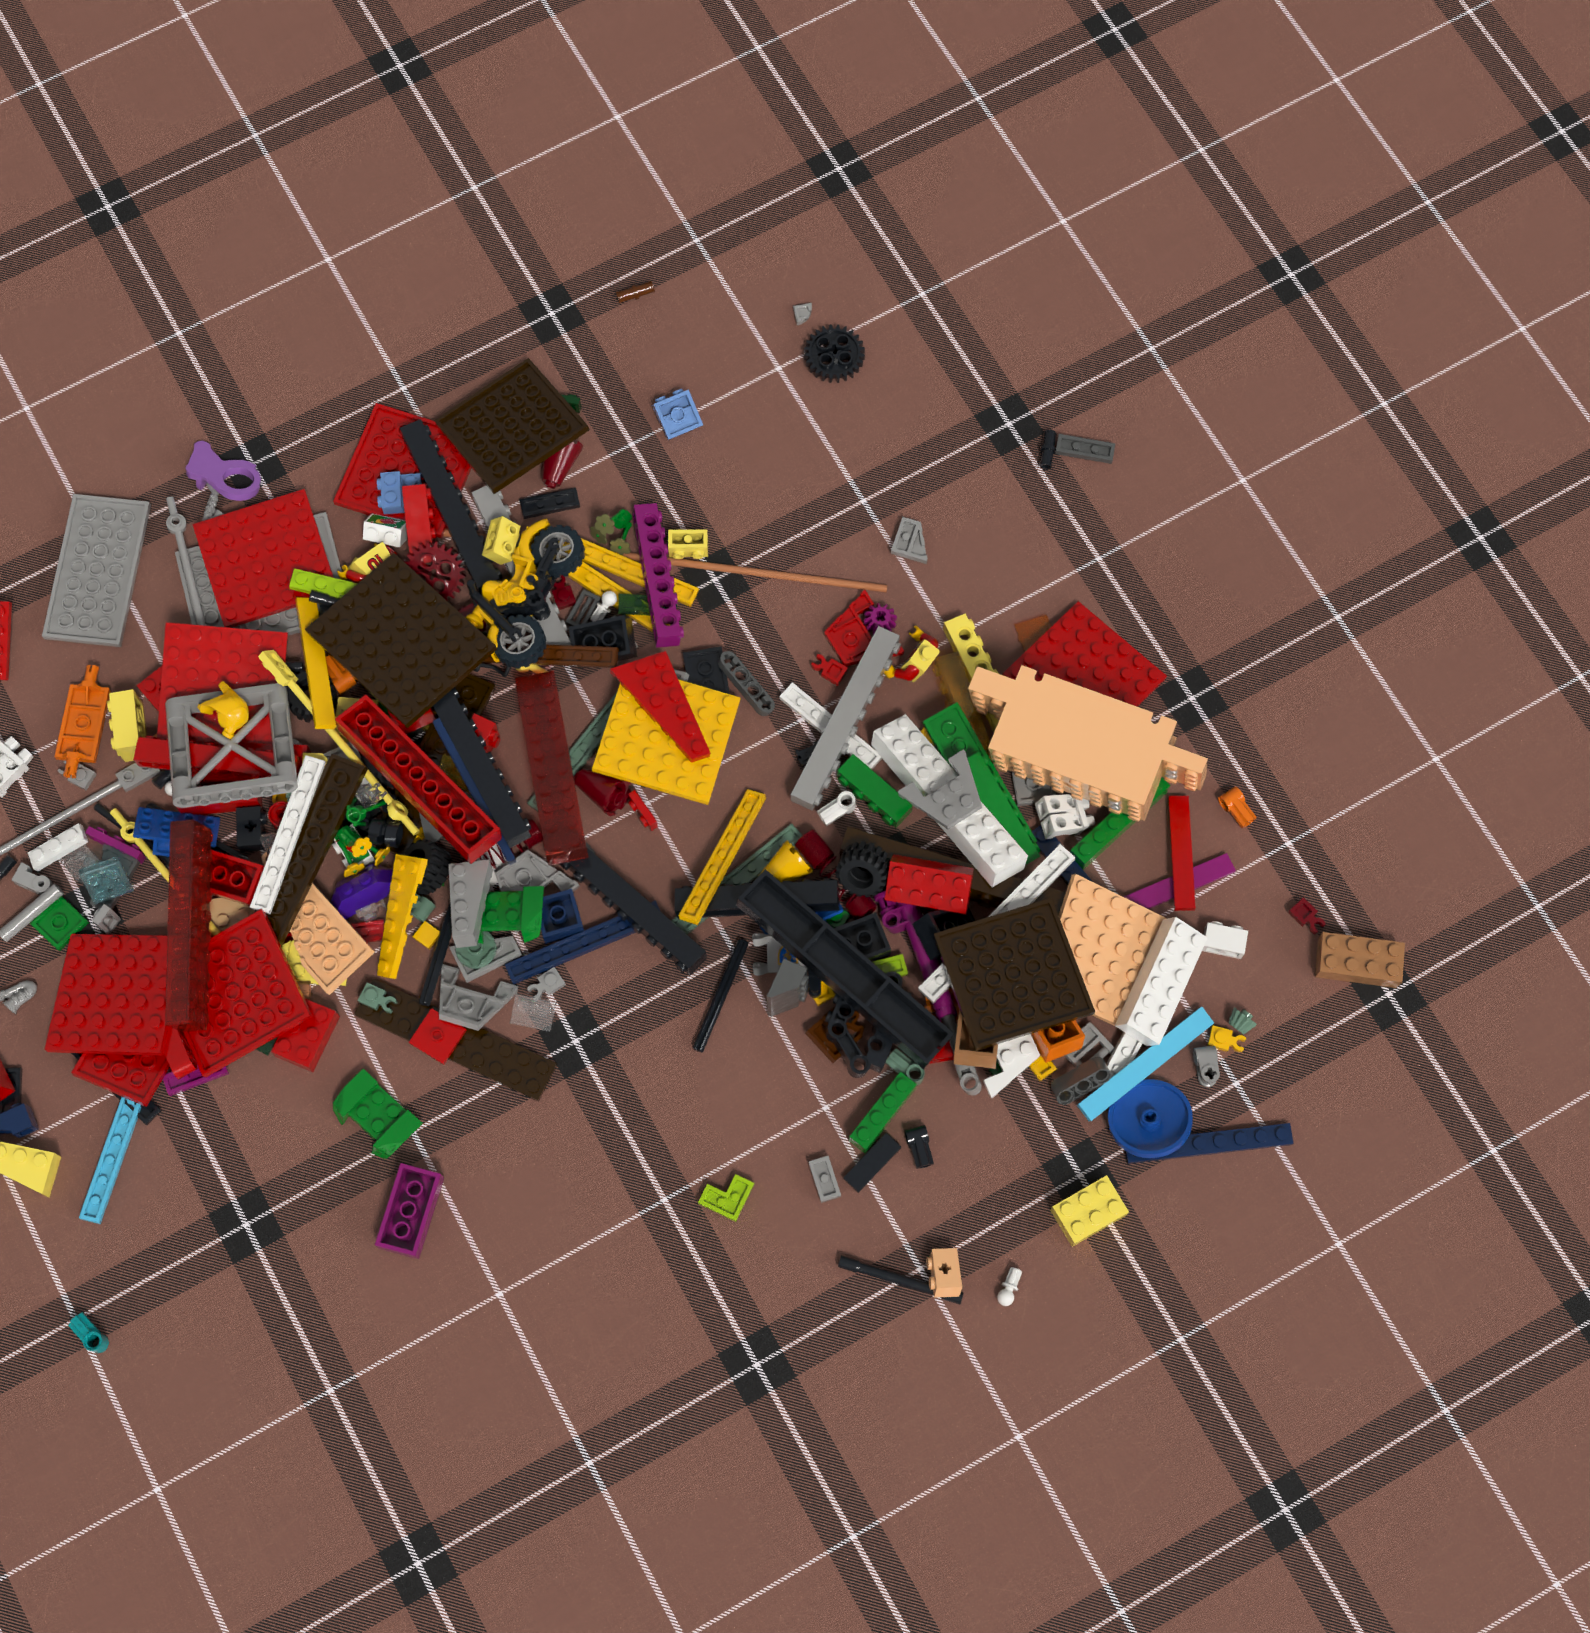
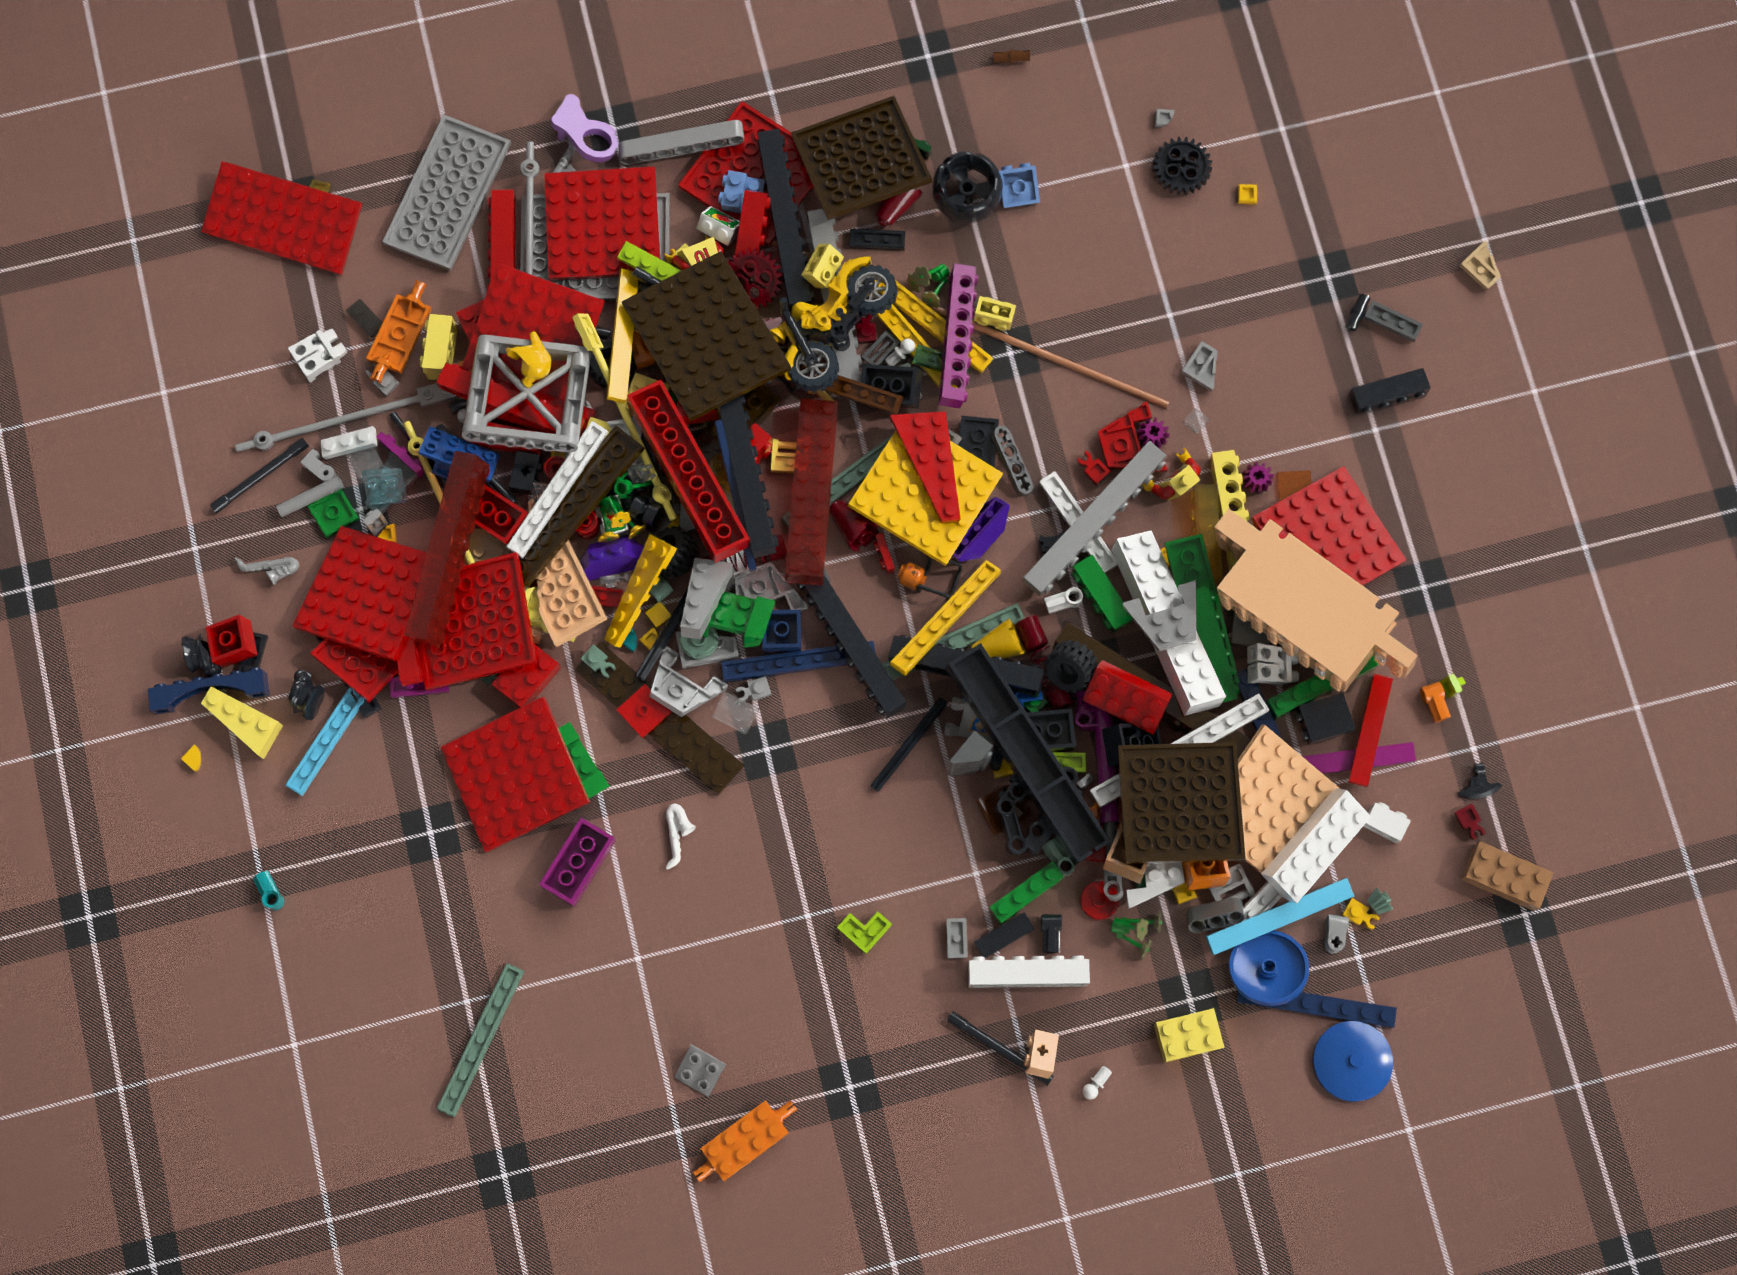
camera: 15 degrees right, 5 degrees up
(43, 717) = (365, 318): none -> clear smoke plate
(76, 1118) = (305, 696): none -> black piece
(123, 927) = (389, 533): none -> yellow tile
(164, 590) = (502, 229): none -> red brick
(320, 1139) = (515, 774): none -> red plate
(324, 458) = (681, 142): none -> light grey beam
(331, 866) = (589, 528): none -> red wheel
(355, 1427) = (480, 1040): none -> sand green tile
(405, 969) = (631, 641): none -> teal tile
(423, 961) = (649, 638): none -> yellow tile
(502, 1140) = (677, 822): none -> white piece
(515, 746) = (781, 461): none -> plate
(595, 1392) = (700, 1070): none -> light grey hinge
(624, 447) = (956, 205): none -> black wheel
(662, 1452) = (744, 1140): none -> orange plate
(676, 825) = (911, 575): none -> orange head
(688, 833) = (948, 596): none -> black piece
(737, 759) = (984, 530): none -> dark purple wedge
(906, 364) = (1247, 194): none -> yellow tile
(907, 1193) = (1028, 973): none -> white brick
(910, 983) = (1084, 782): none -> light grey tile
(919, 596) = (1196, 421): none -> clear tile
(957, 1103) = (1095, 902): none -> red tile
(990, 1119) = (1123, 927): none -> plant
(996, 628) = (1264, 480): none -> magenta gear
(1102, 516) = (1389, 391): none -> black brick
(1133, 854) = (1325, 719): none -> black brick
(1156, 374) = (1481, 266): none -> tan wing
(1249, 786) = (1452, 685): none -> lime tile
(1262, 1190) = (1352, 1061): none -> blue dish
(1304, 878) = (1479, 786): none -> black piece

